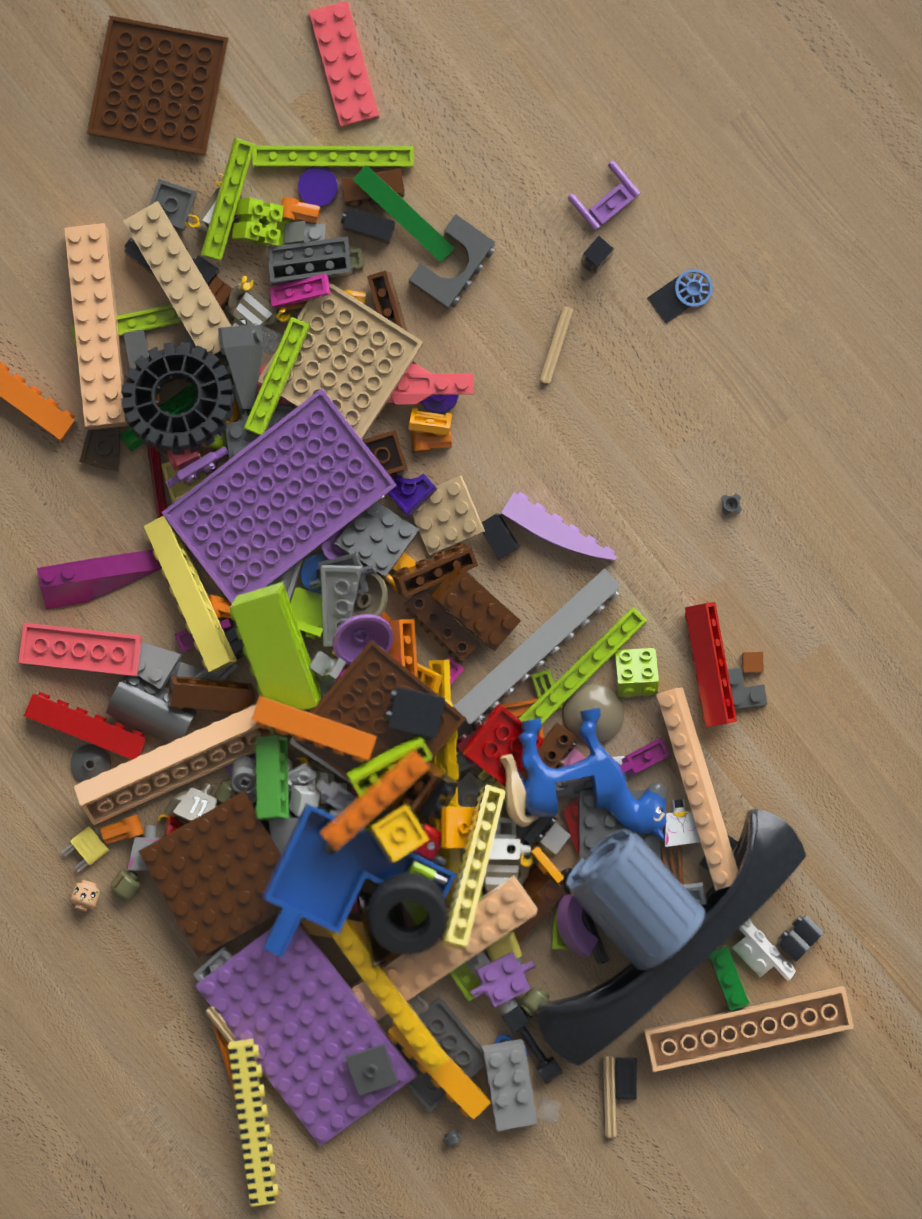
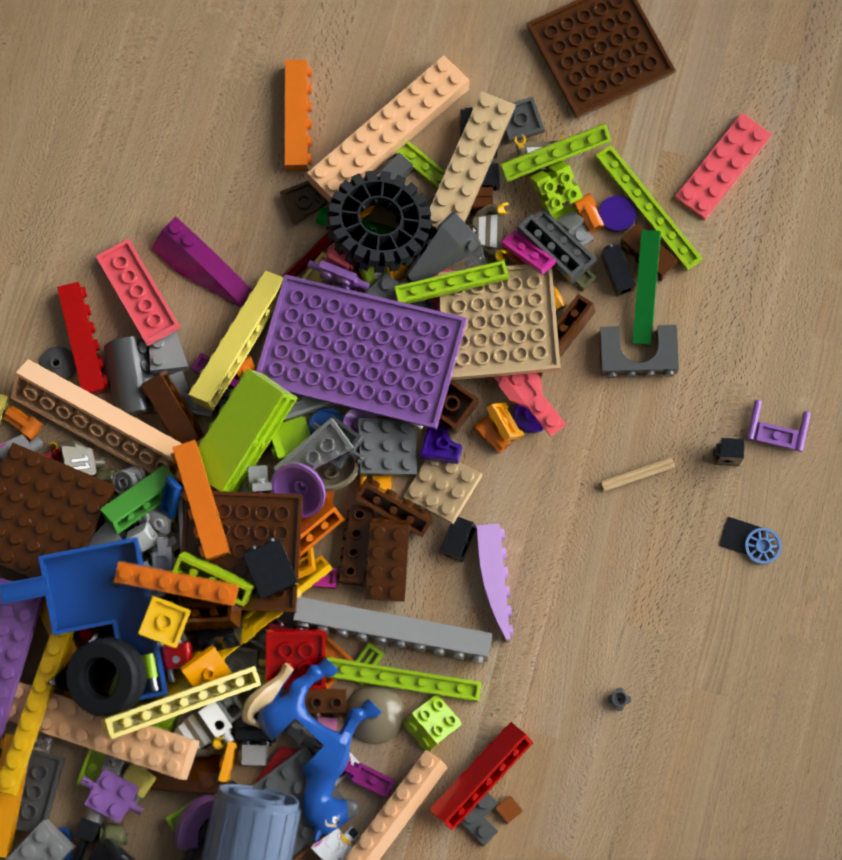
camera: 60 degrees right, 10 degrees down
(291, 751) = (170, 497): none -> blue plate

